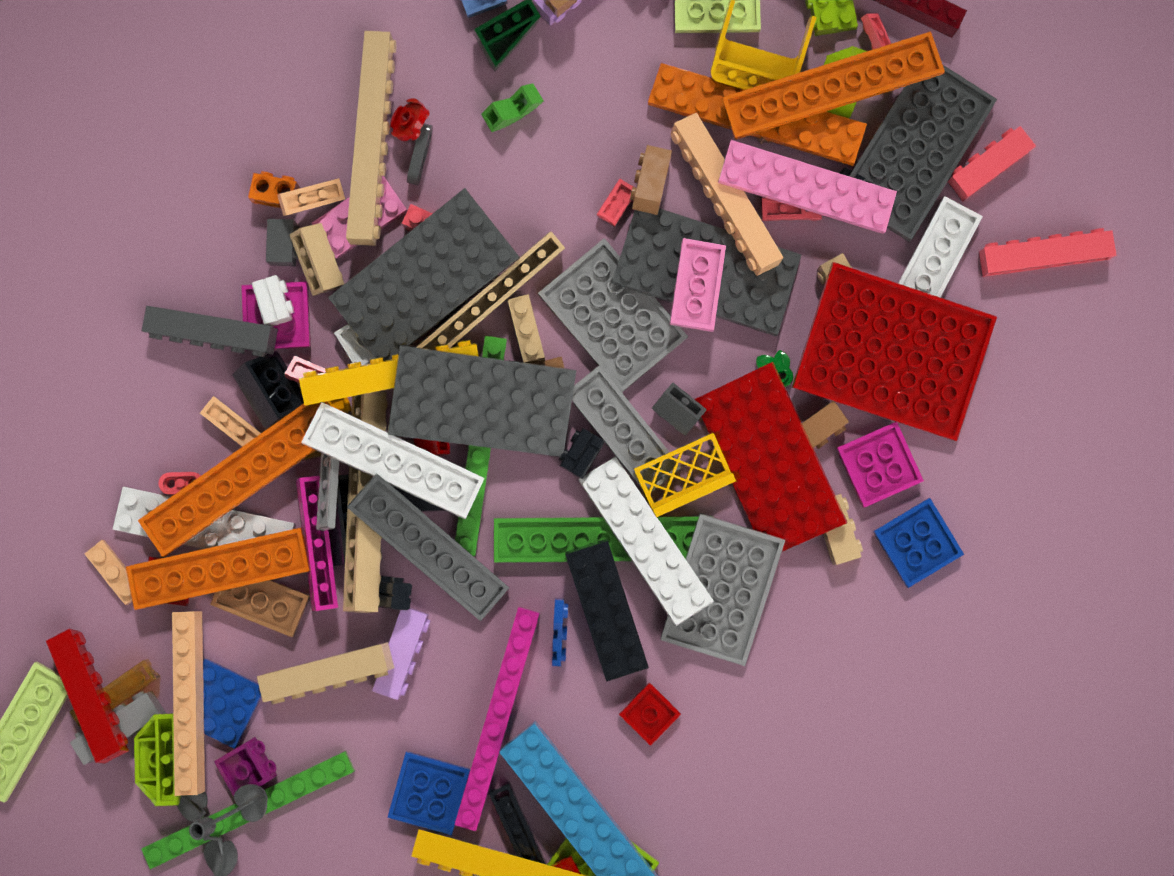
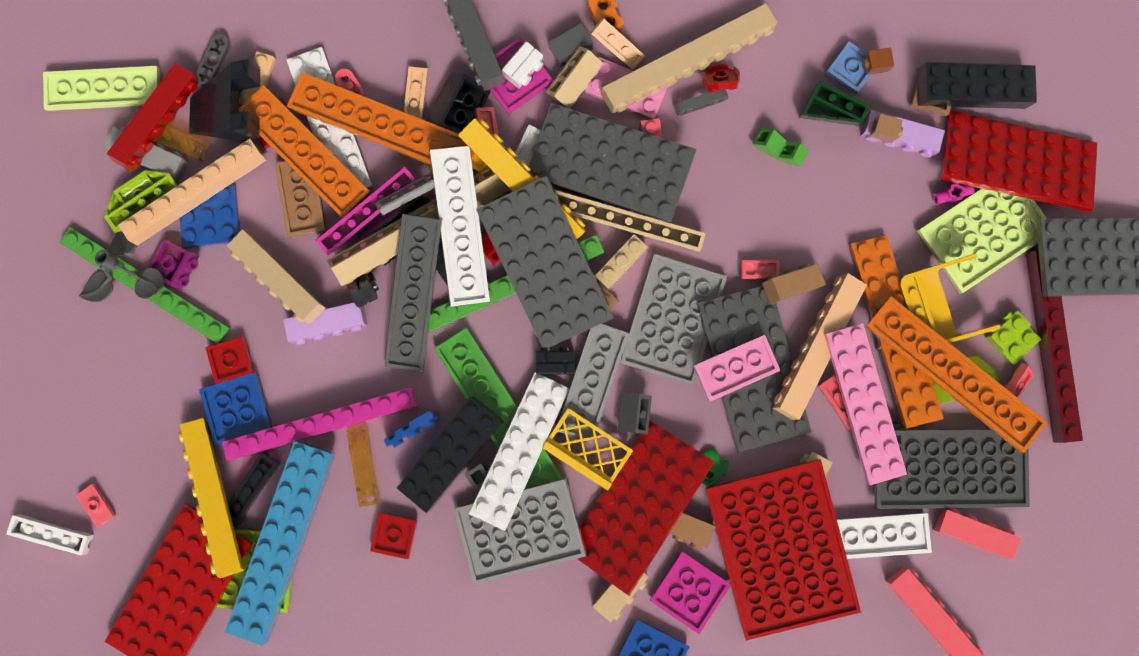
camera: 60 degrees right, 0 degrees up
(55, 601) = (209, 53): none -> dark grey beam
(116, 627) = (216, 104): none -> black wedge
(377, 769) = (229, 359): none -> red plate
(565, 702) = (363, 466): none -> clear yellow piece
(644, 596) = (477, 475): none -> dark grey brick

